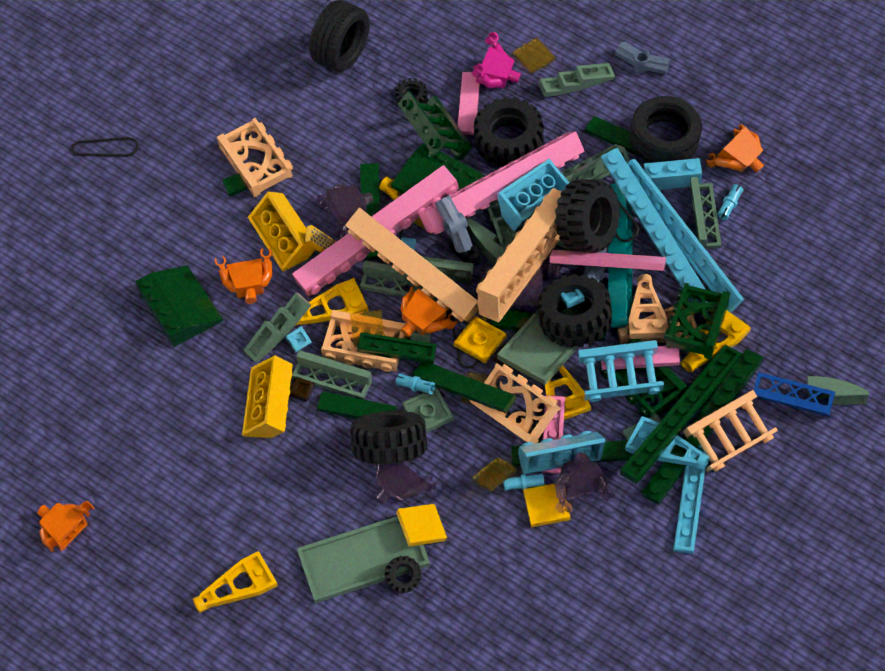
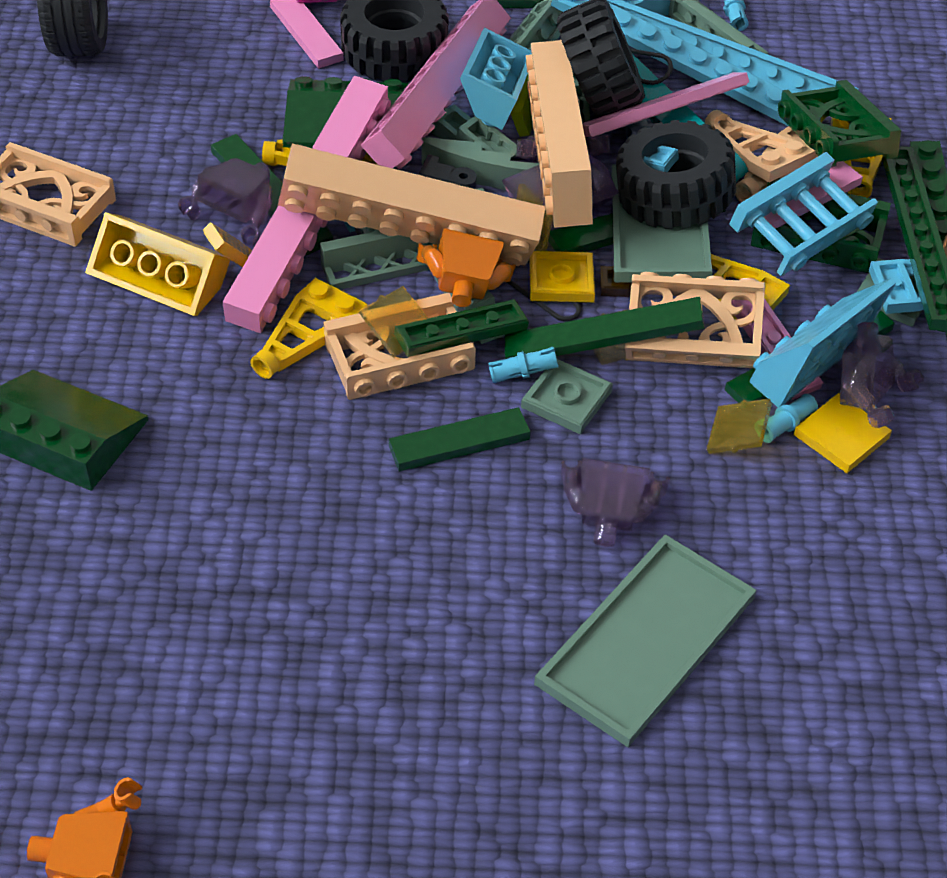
camera: 40 degrees left, 10 degrees down
(234, 184) = (32, 240): dark green tile -> none
(247, 277) = (148, 341): orange torso -> none
(258, 572) = (497, 744): yellow plate -> none
(267, 398) = (311, 487): yellow slope -> none
(277, 328) = (253, 383): sand green slope -> none
(298, 339) = (294, 388): medium azure tile -> none
(302, 389) = (351, 452): dark brown tile -> none
(335, 369) = (384, 403): sand green fence -> none
(388, 437) = (565, 435): black tyre -> none
(402, 561) = (753, 614): black tyre -> none
(412, 86) = (219, 46): black tyre -> none
(421, 525) = (699, 543): yellow tile -> none
(435, 125) = (285, 52): dark green fence -> none
(454, 224) = (428, 135): sand blue piece -> none

